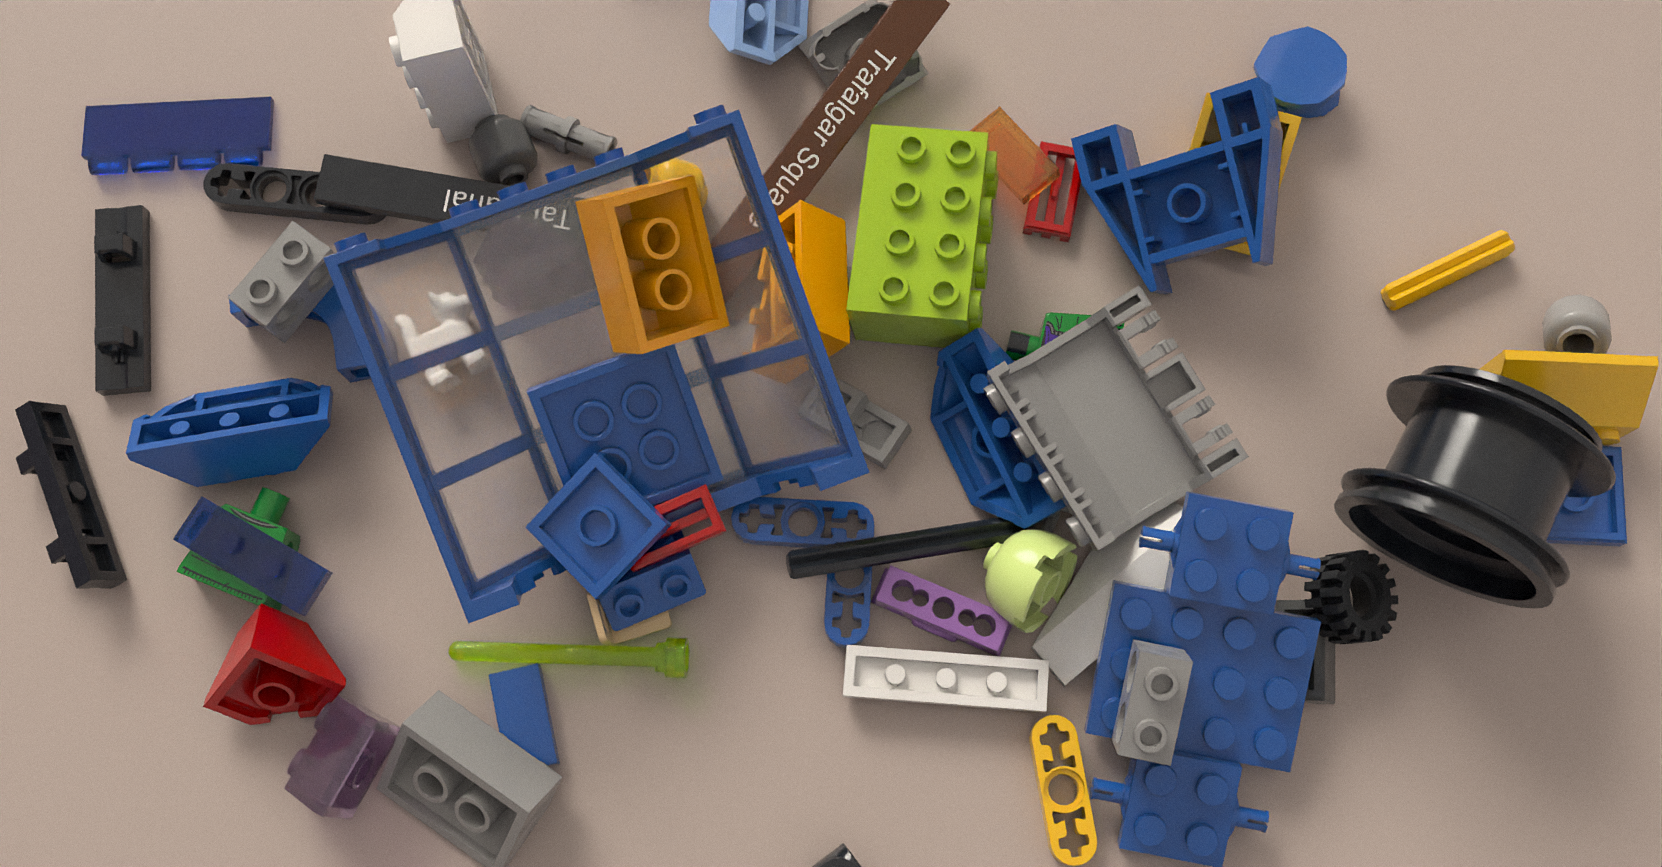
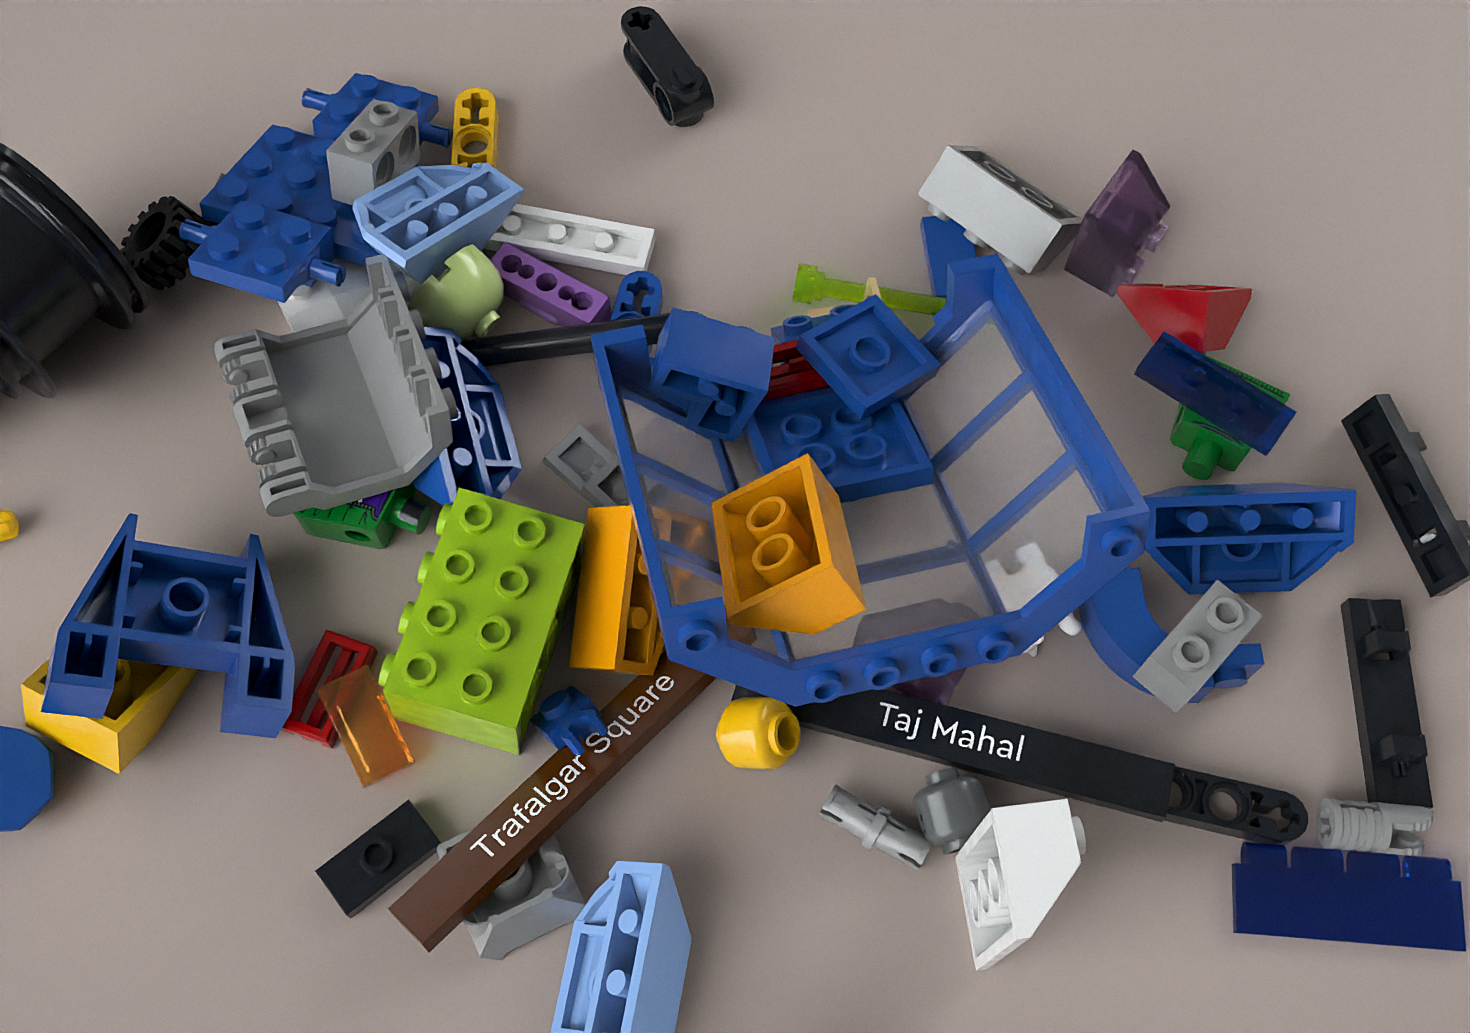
camera: 175 degrees left, 10 degrees down
(150, 185) = (1371, 826): none -> light grey hinge
(745, 460) = (716, 368): none -> blue brick
(838, 176) = (568, 719): none -> blue plate
(973, 62) = (378, 859): none -> black plate
(1073, 635) = (434, 214): none -> light blue wedge

